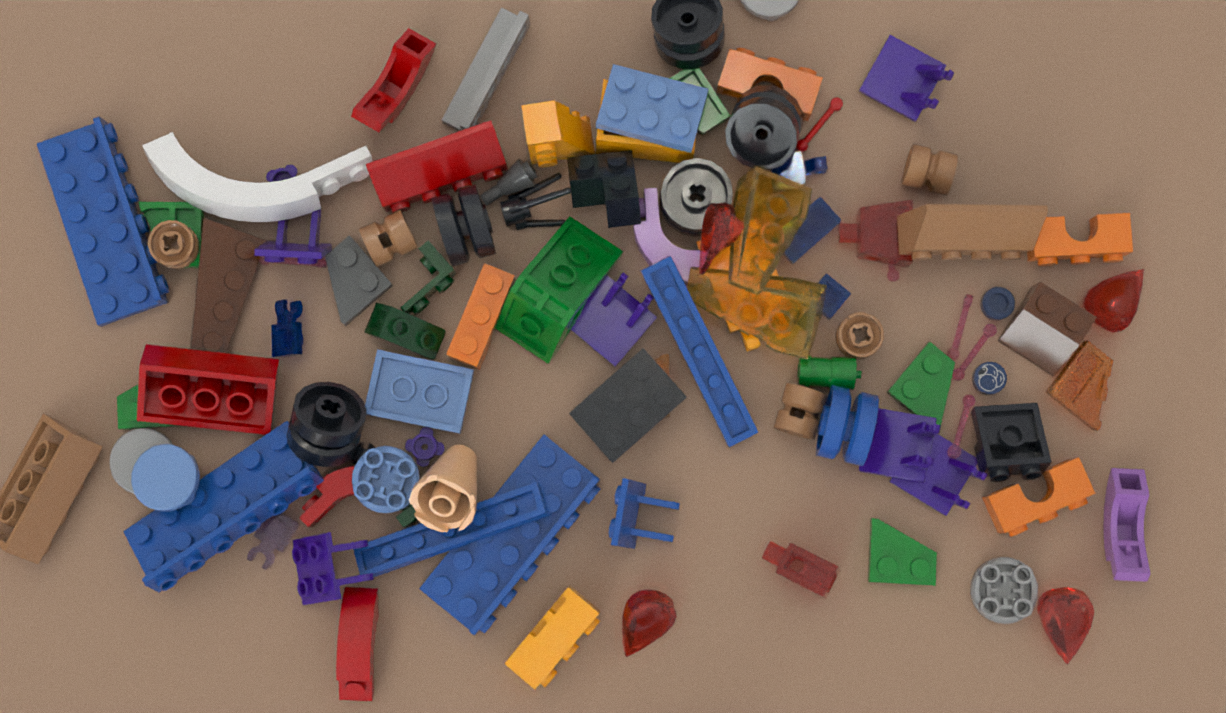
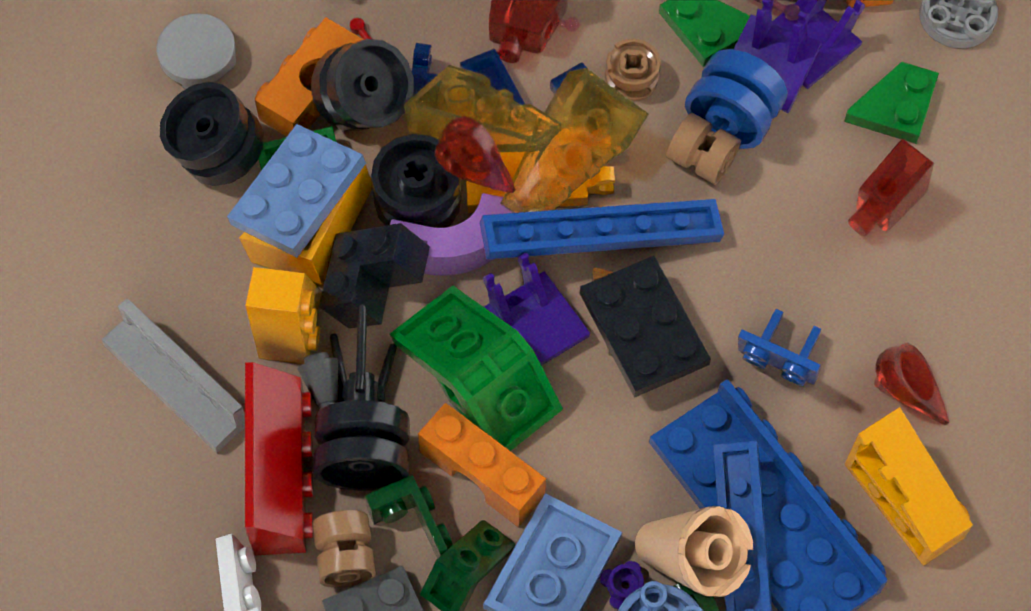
camera: 75 degrees left, 20 degrees down
(396, 82) = (144, 482): red arch -> none
(828, 372) = (664, 111): green piece -> none

